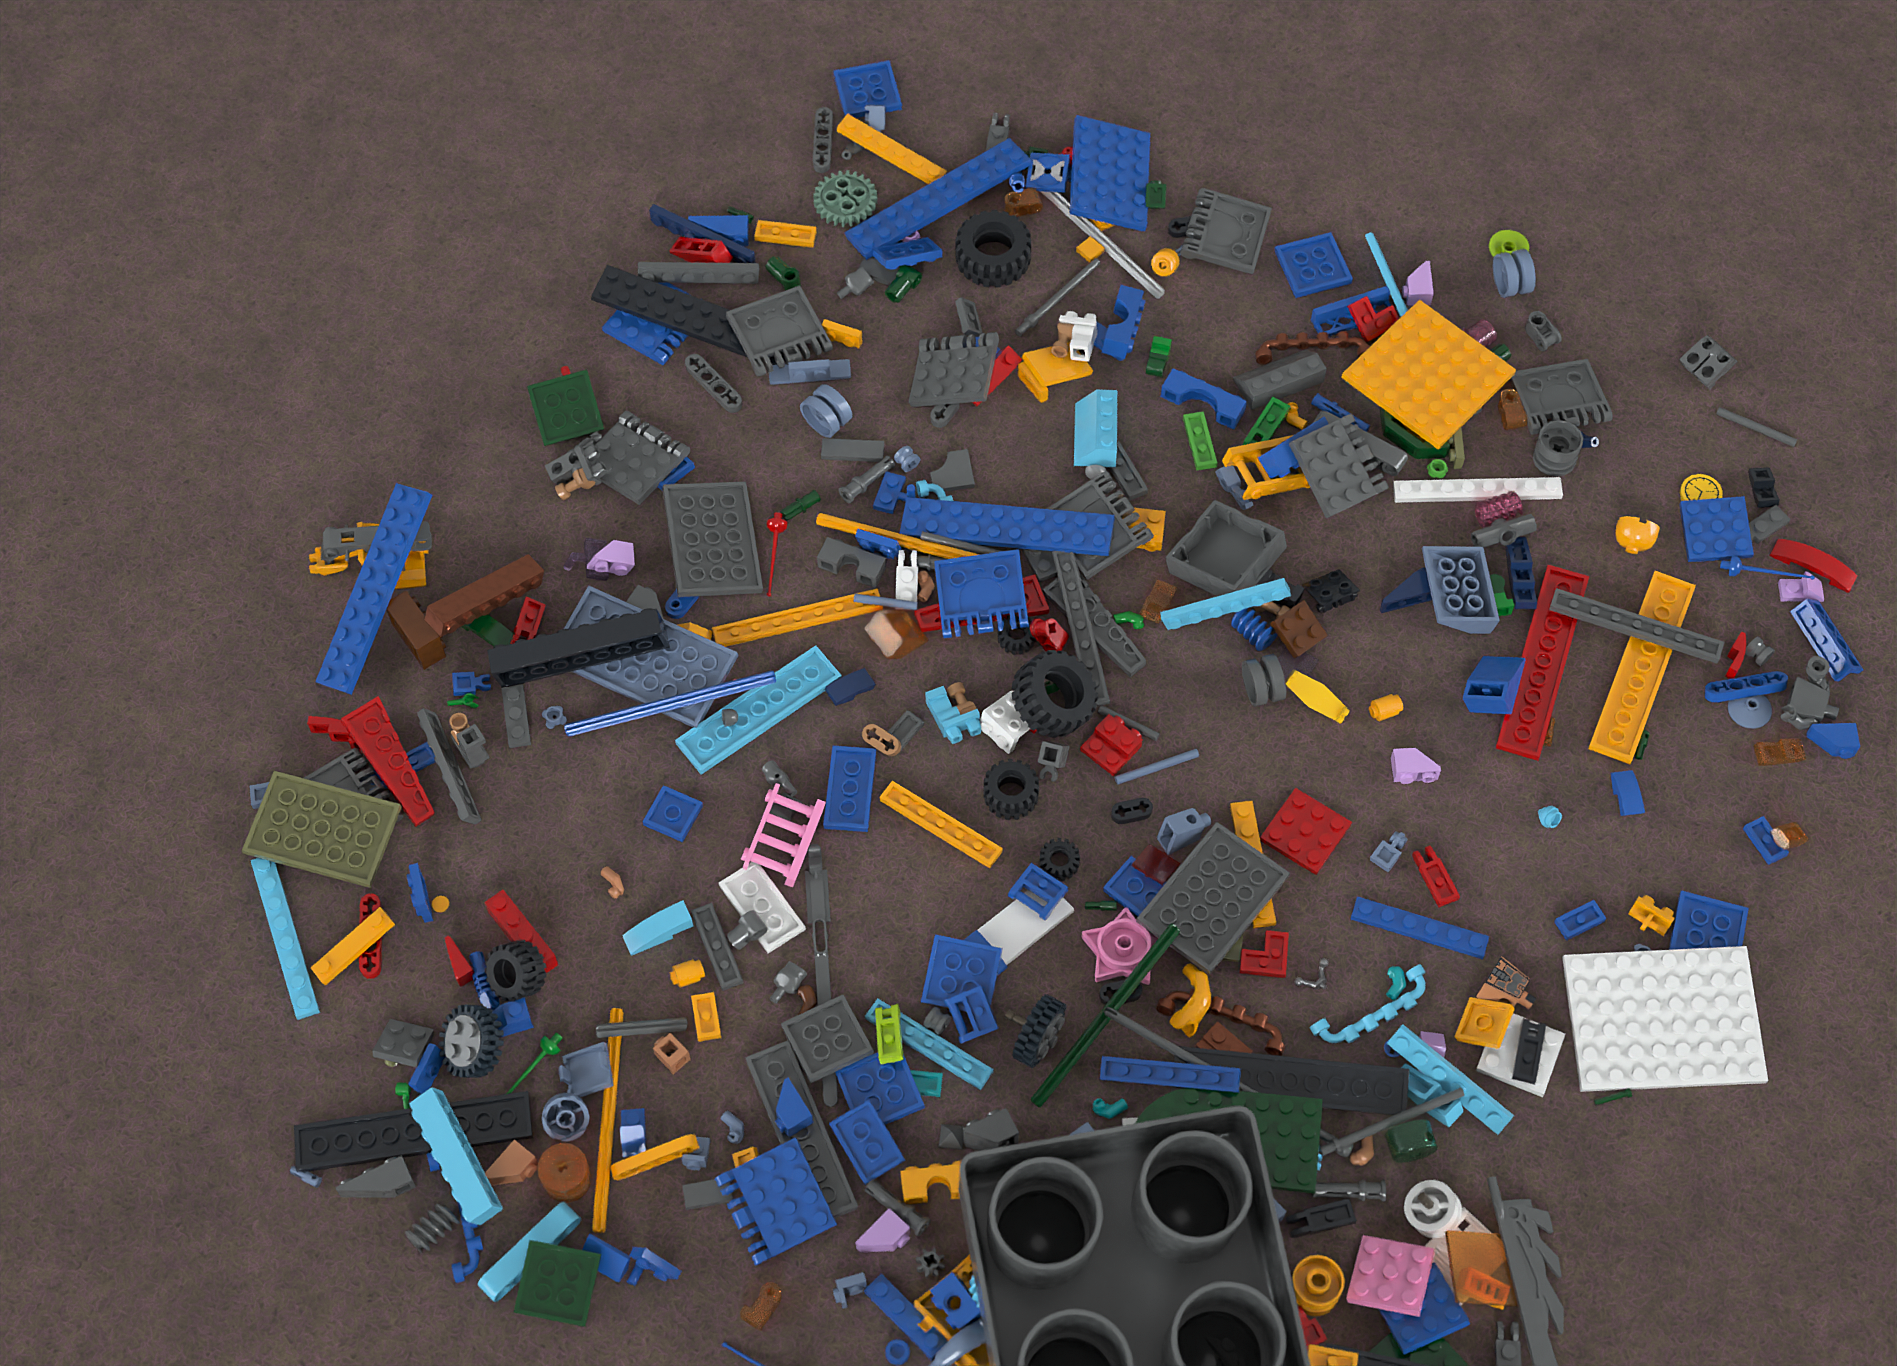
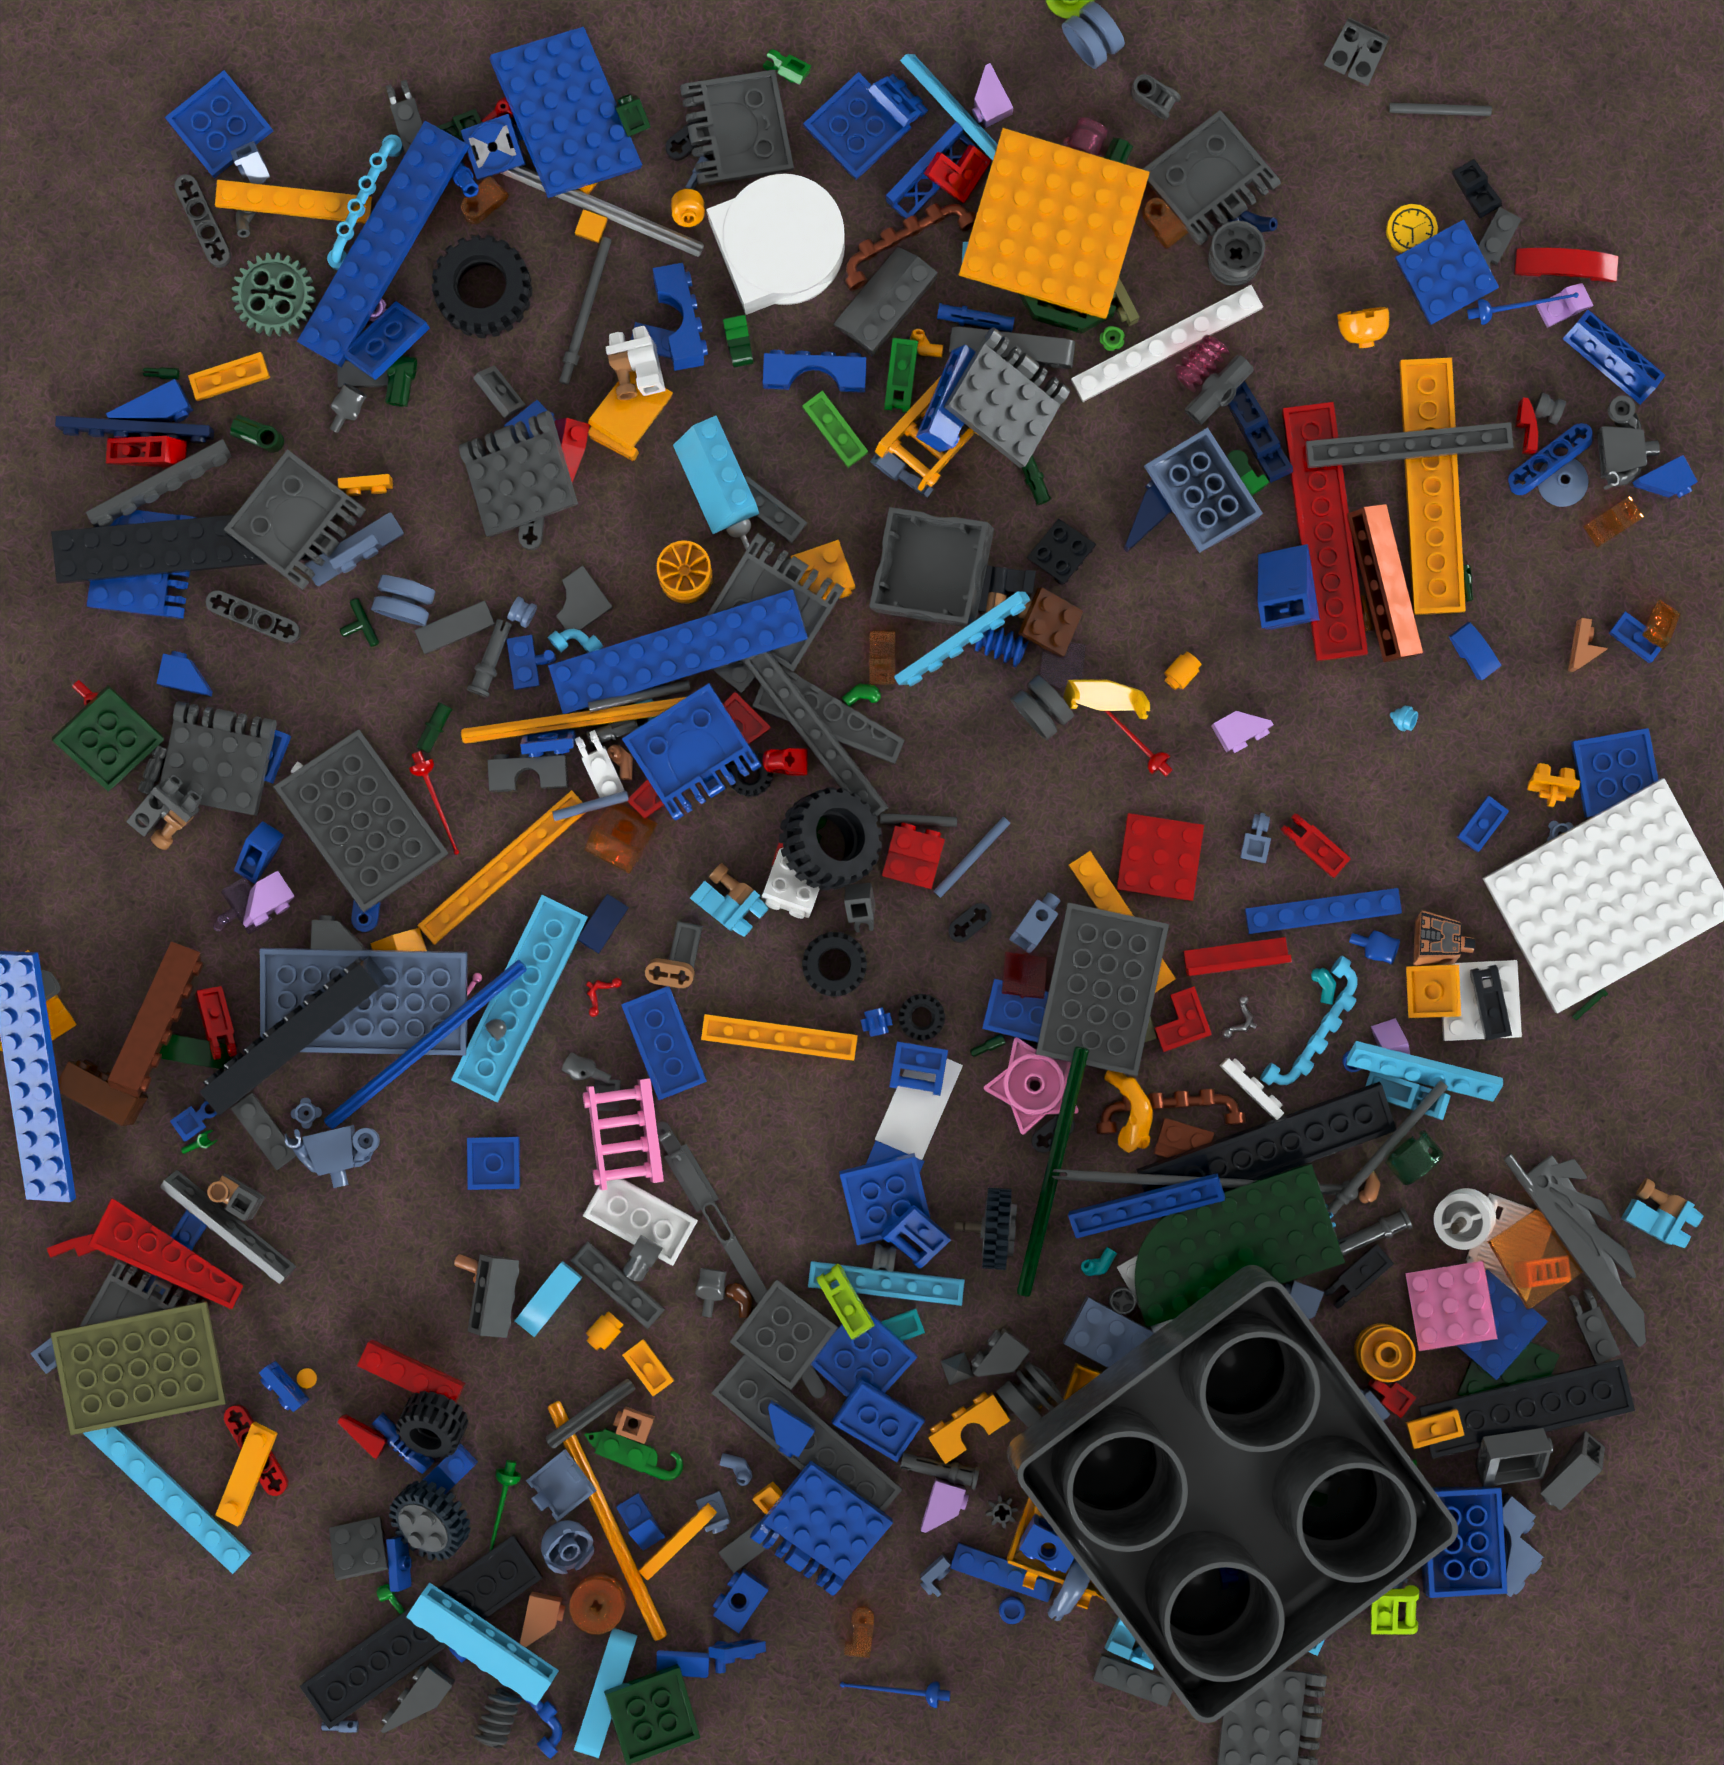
camera: 25 degrees left, 25 degrees up
(560, 748) = (335, 1151): none -> sand blue torso
(617, 905) = (493, 1296): none -> dark grey brick
(627, 526) = (258, 852): none -> blue slope
(640, 395) = (182, 674): none -> blue slope
(657, 1077) = (632, 1454): none -> green plate
(674, 1242) = (737, 1615): none -> blue brick
(788, 419) = (361, 623): none -> dark green piece
(814, 732) = (593, 1011): none -> red piece
(948, 156) = (390, 147): none -> medium azure bar
(1022, 845) = (876, 1022): none -> blue gear
(1040, 479) = (684, 572): none -> light orange wheel
(1221, 305) = (779, 240): none -> white brick
(1283, 212) = (788, 67): none -> green plate
(1299, 1028) = (1252, 1087): none -> white plate
(1332, 929) = (1236, 956): none -> red fence
(1333, 534) = (1034, 479): none -> dark green pin
(1335, 761) = (1157, 761): none -> red sword
(1351, 258) = (898, 99): none -> blue plate
(1453, 971) = (1377, 946): none -> blue piece
(1575, 713) = (1384, 583): none -> brick
(1607, 1297) = (1667, 1220): none -> medium azure hips
(1718, 830) = (1581, 651): none -> nougat slope

